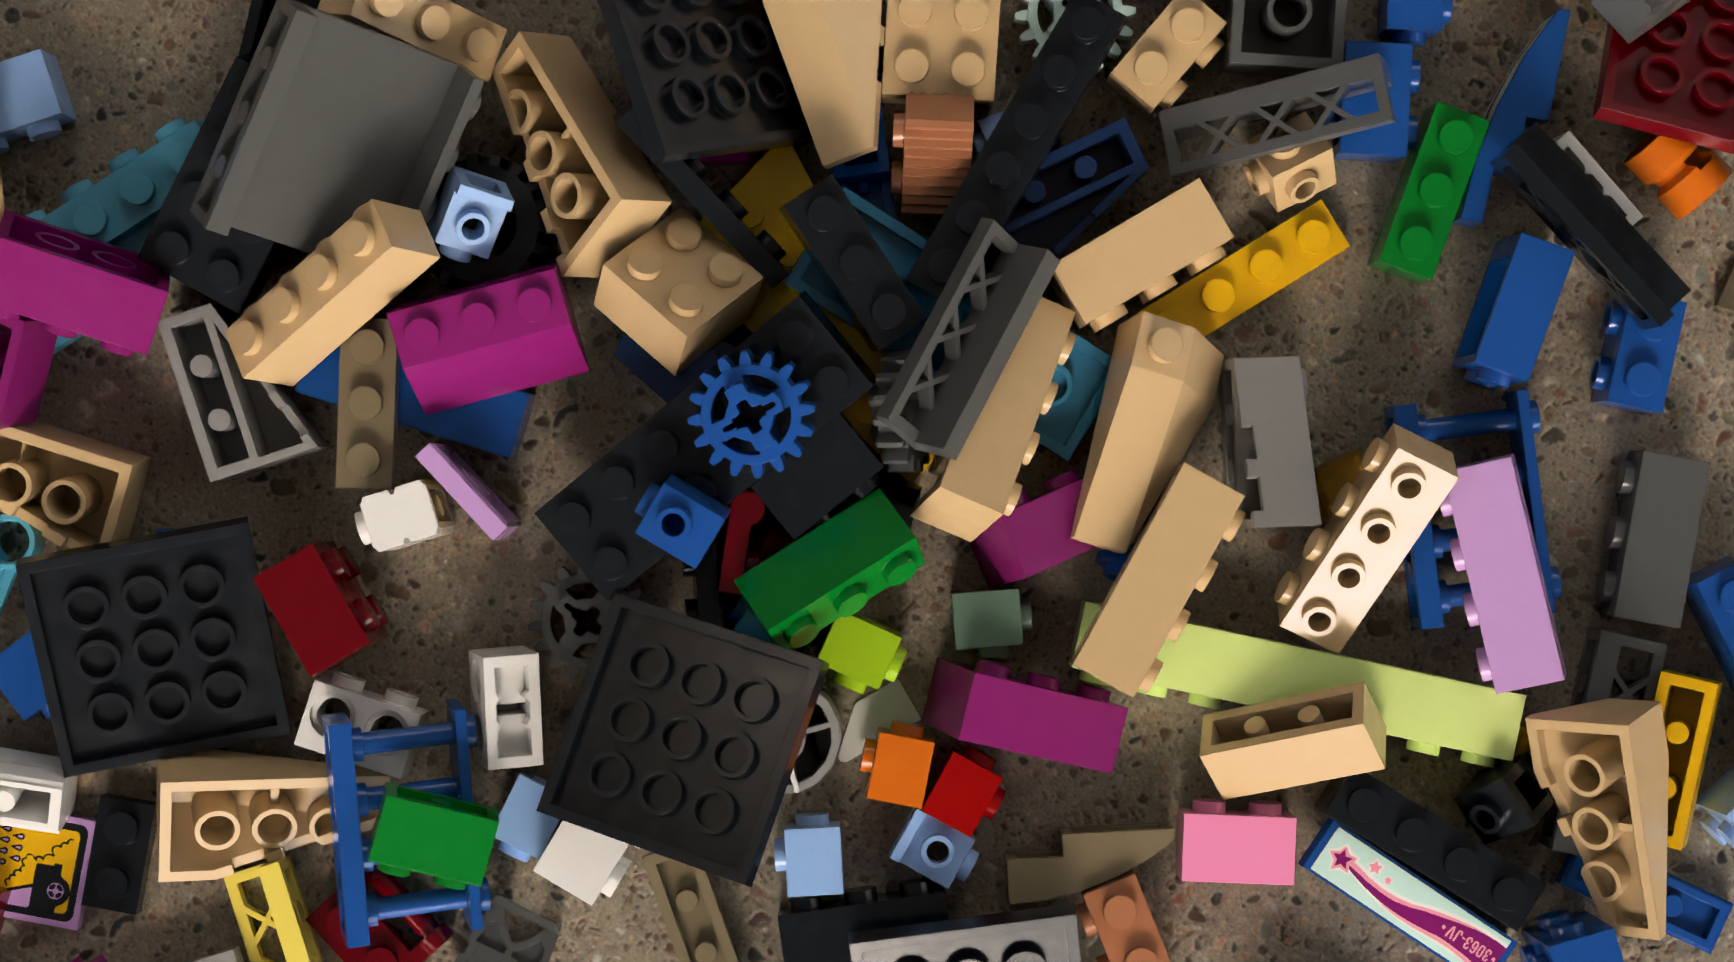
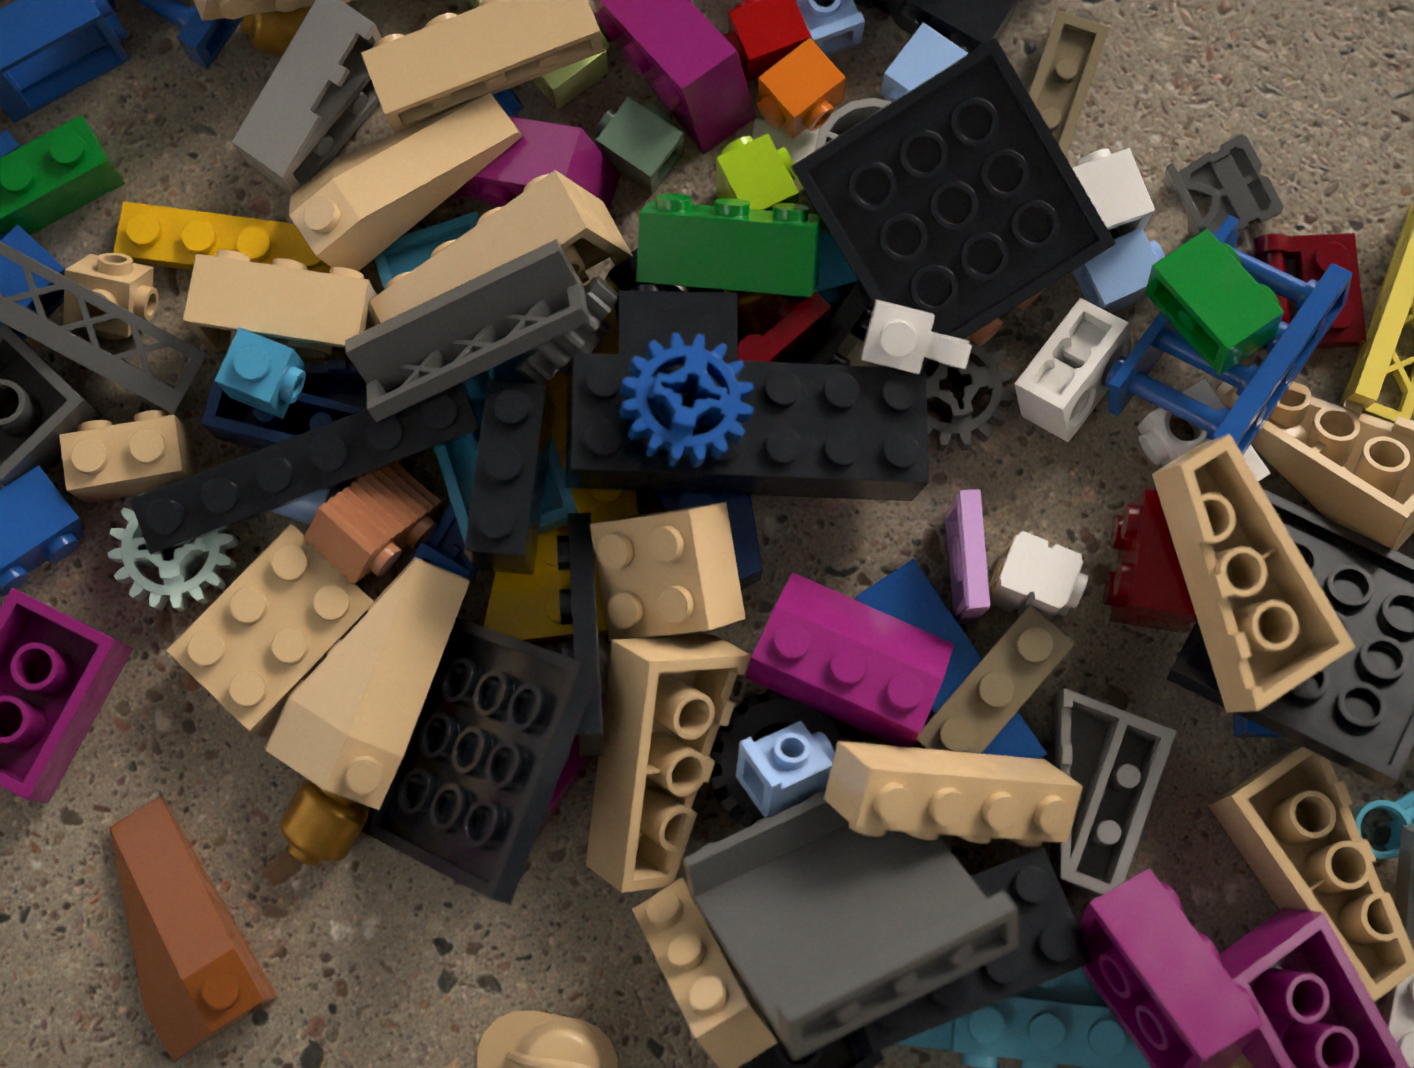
camera: 140 degrees left, 10 degrees down
(233, 621) = (1246, 578): none -> tan wedge
(637, 607) = (903, 337): none -> white plate
(680, 519) = (813, 367): blue brick -> none
(1102, 186) = (261, 373): none -> dark azure brick

